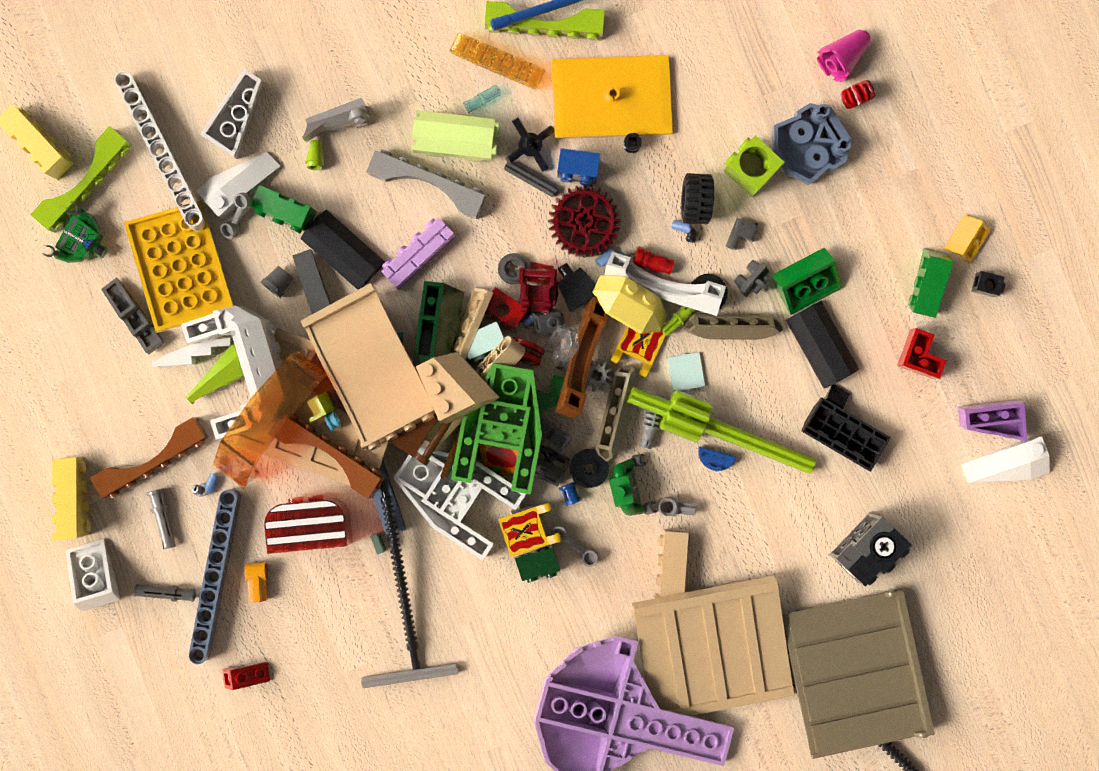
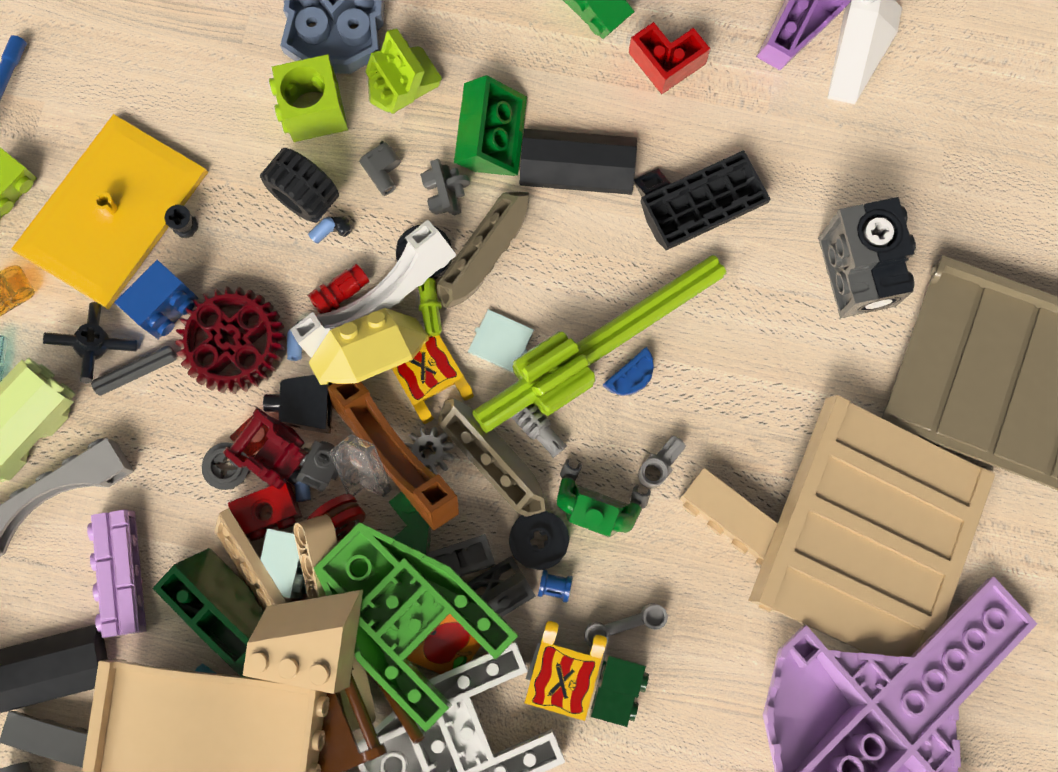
camera: 55 degrees left, 10 degrees down
(804, 206) = (399, 74): none -> lime piece

